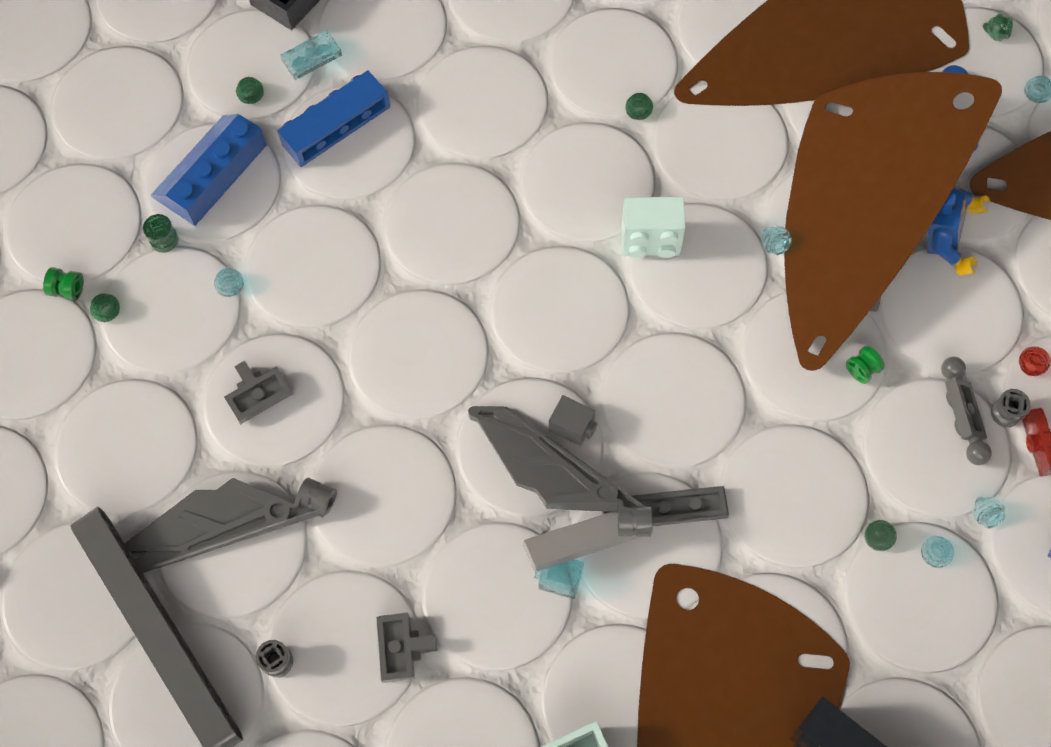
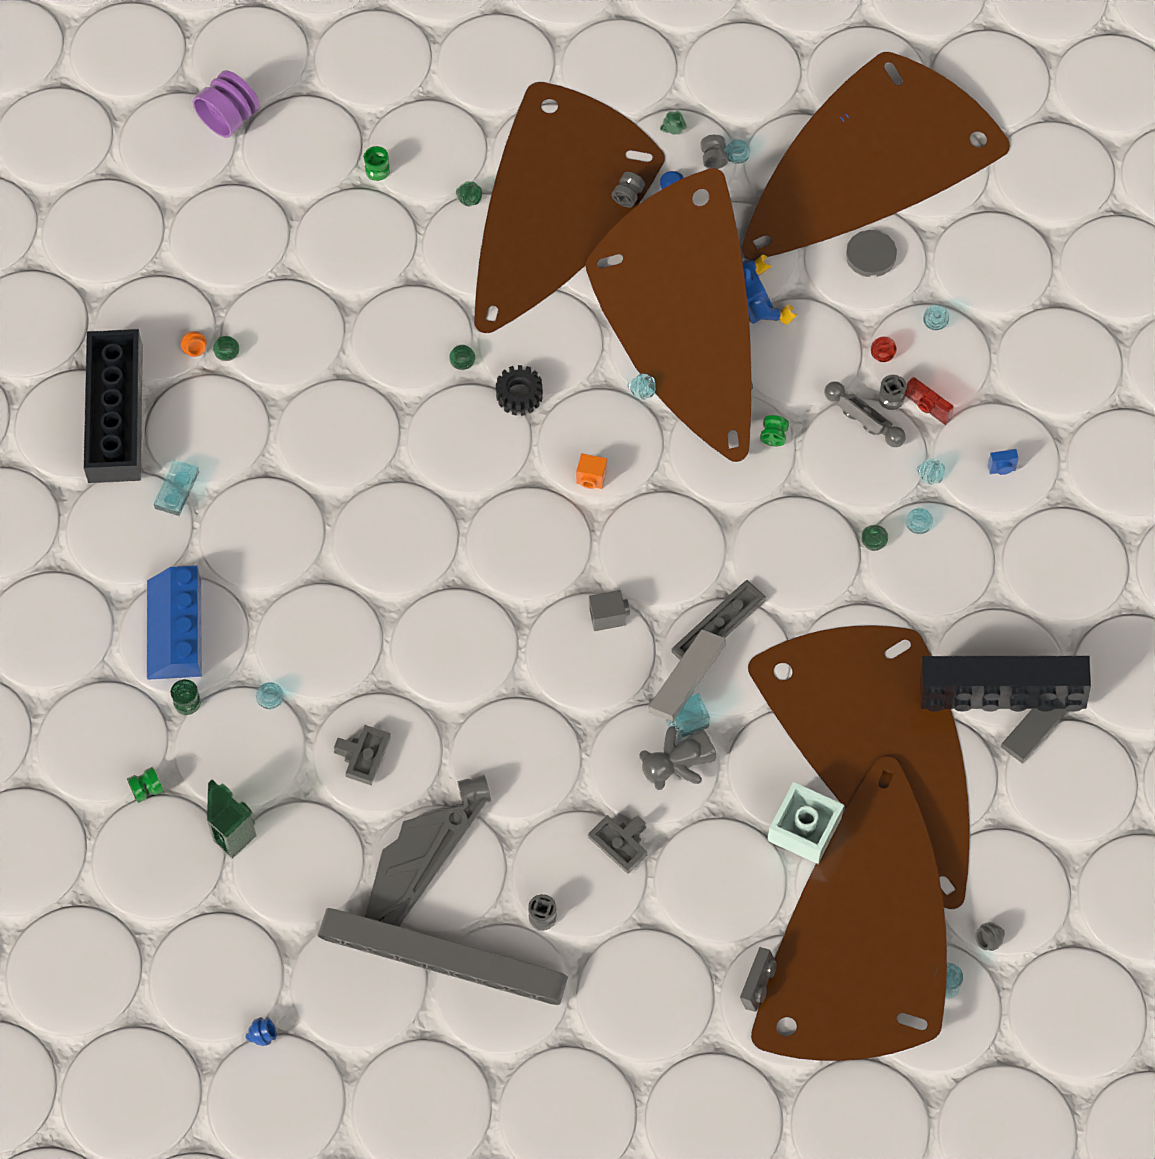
camera: 40 degrees left, 5 degrees down
(88, 362) = (228, 820): none -> clear green slope
(101, 301) = (188, 773): clear green plate -> none
(249, 84) = (152, 541): clear green plate -> none
(334, 118) = (240, 522): blue brick -> none
(513, 608) = (677, 759): none -> dark grey piece
(555, 473) = (628, 651): dark grey wing -> none
(652, 226) = (551, 436): light aqua brick -> none
(664, 283) = (591, 471): none -> orange plate
(668, 154) = (519, 403): none -> black tyre
(910, 56) = (627, 191): none -> dark grey wheel
(1017, 72) = (713, 149): none -> dark grey wheel

